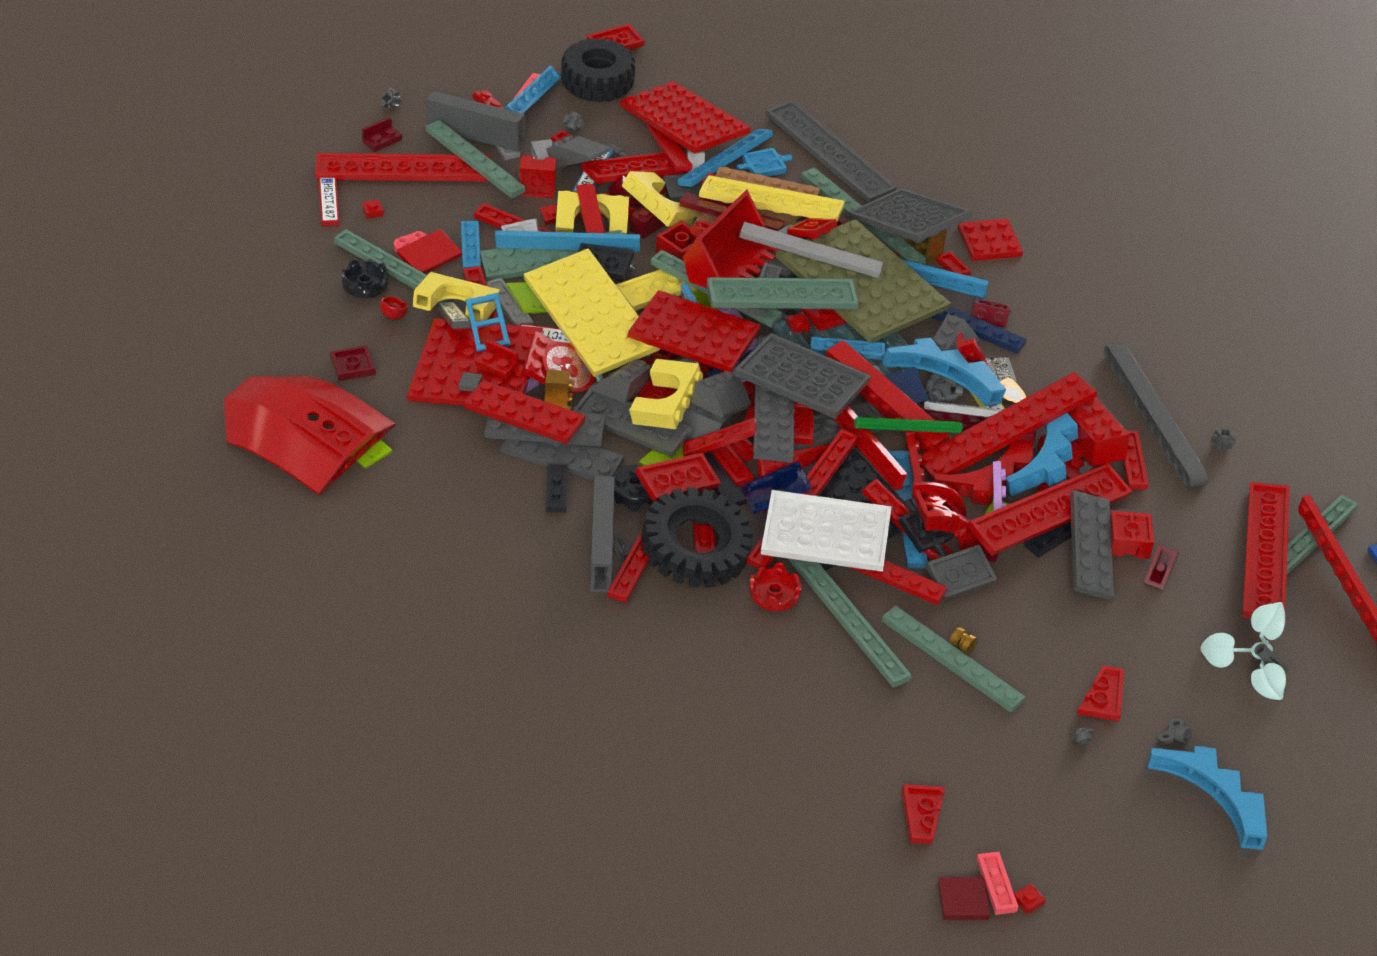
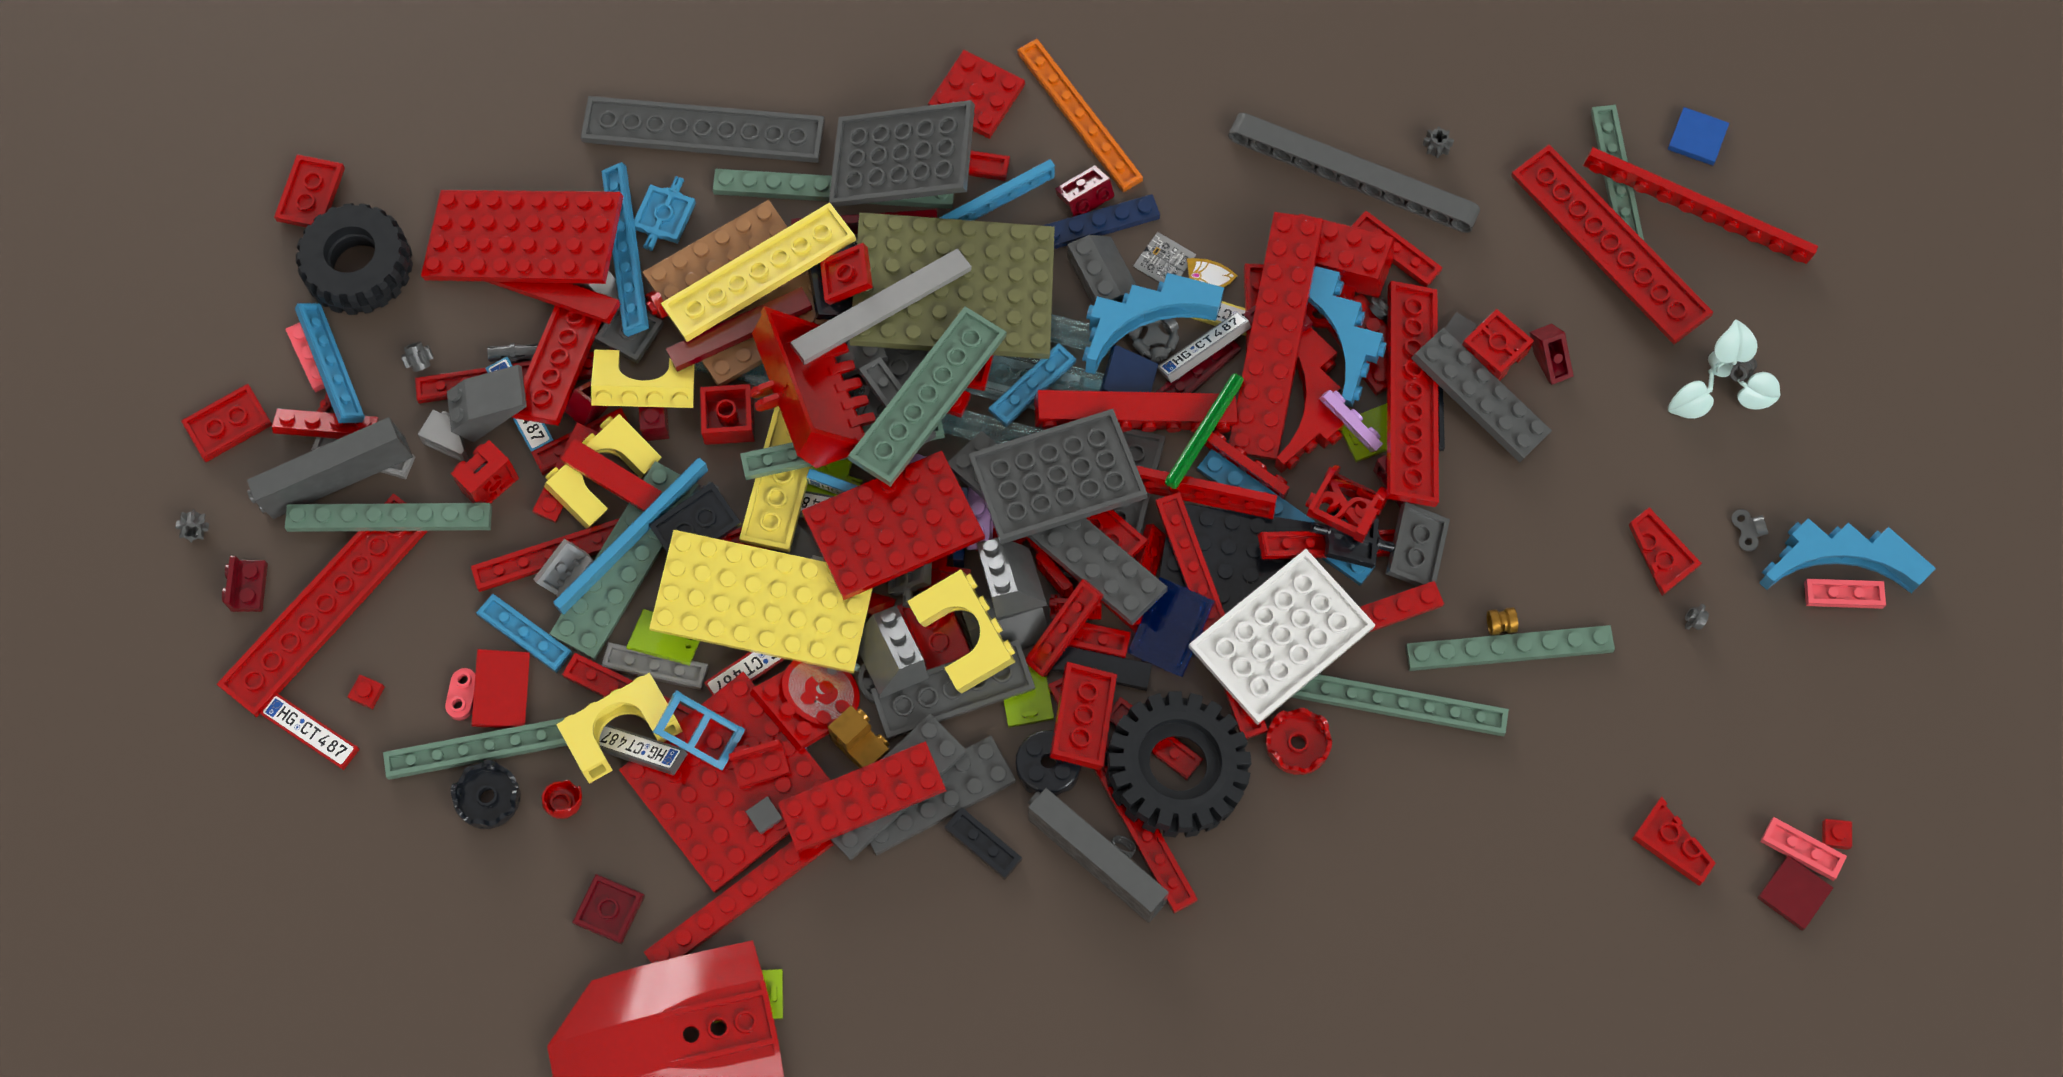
camera: 45 degrees left, 25 degrees up
(422, 410) = (734, 902): none -> red plate
(458, 83) = (226, 422): none -> red tile
(970, 349) = (1143, 275): red panel -> none
(1033, 286) = (1080, 115): none -> orange tile
(1193, 805) = (1845, 593): none -> coral plate

